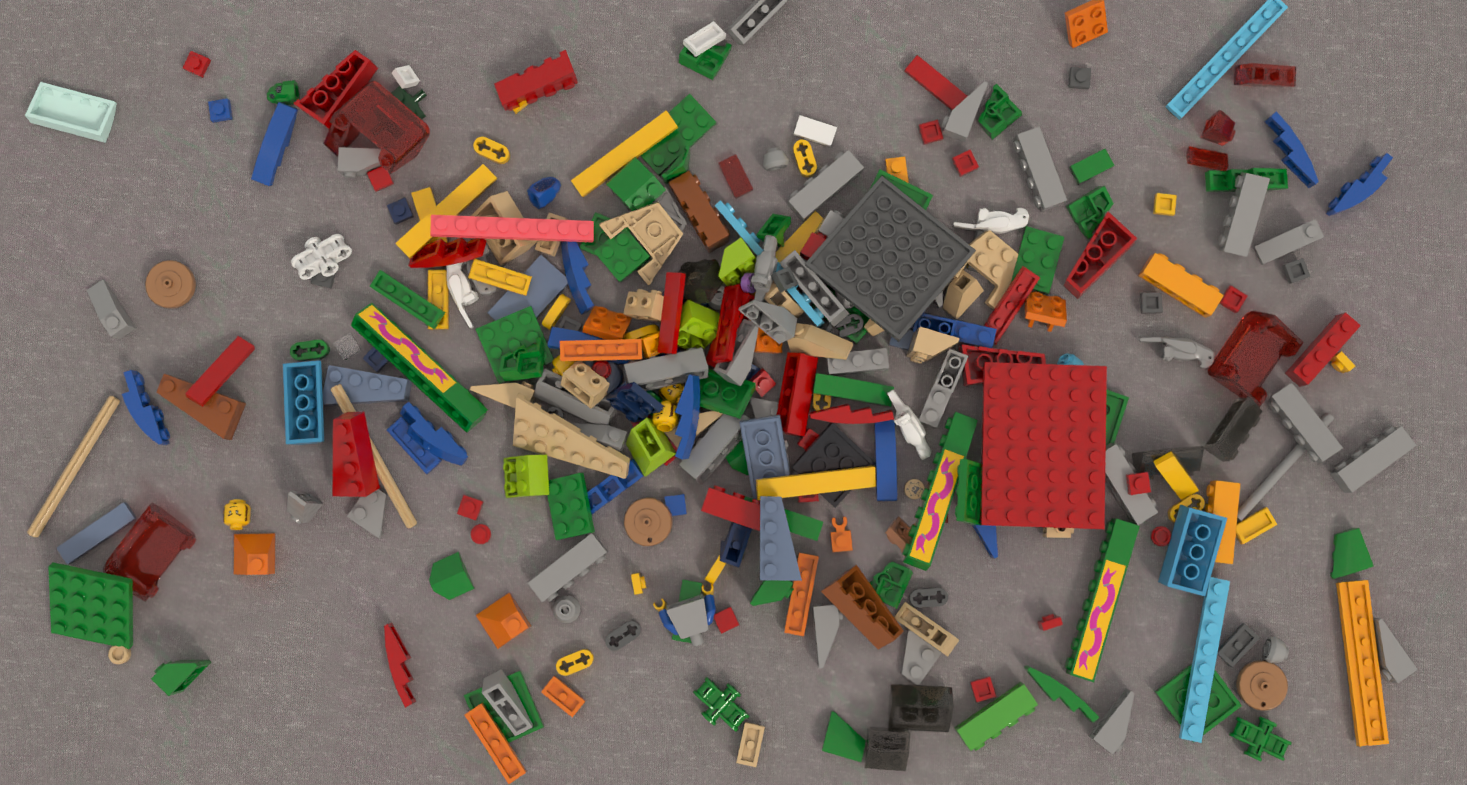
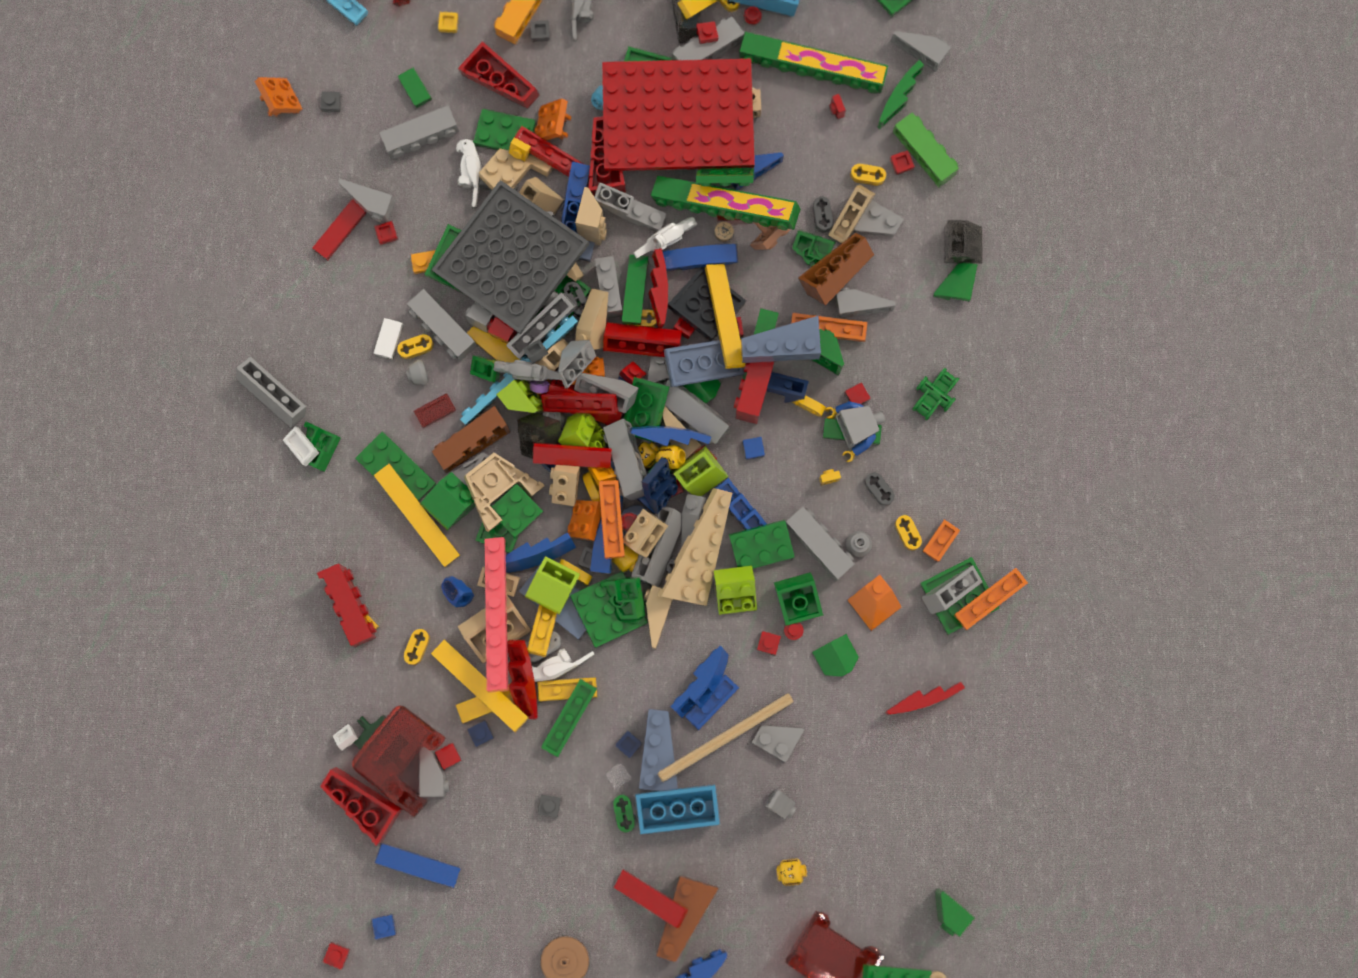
camera: 95 degrees left, 5 degrees down
(254, 554) = (829, 853): orange slope -> none
(284, 92) = (364, 861): green rock -> none
(321, 256) = (530, 806): white axle -> none
(353, 457) = (729, 754): red wedge -> none
(419, 367) = (635, 700): green brick -> none
(511, 540) = (798, 598): none -> green slope
(539, 287) = (552, 585): none -> lime slope
(648, 521) = (771, 471): medium nougat wheel -> none
(679, 167) = (428, 461): green slope -> none
(750, 744) = (970, 365): tan plate -> none
(841, 539) = (774, 295): orange plate -> none
(920, 707) = (923, 215): clear smoke slope -> none
(965, 163) = (415, 199): red plate -> none
(966, 649) = (867, 172): none -> yellow beam
(998, 113) = (366, 171): green slope -> none
(1012, 273) = (519, 149): none -> yellow plate
(1090, 209) = (455, 87): green slope -> none

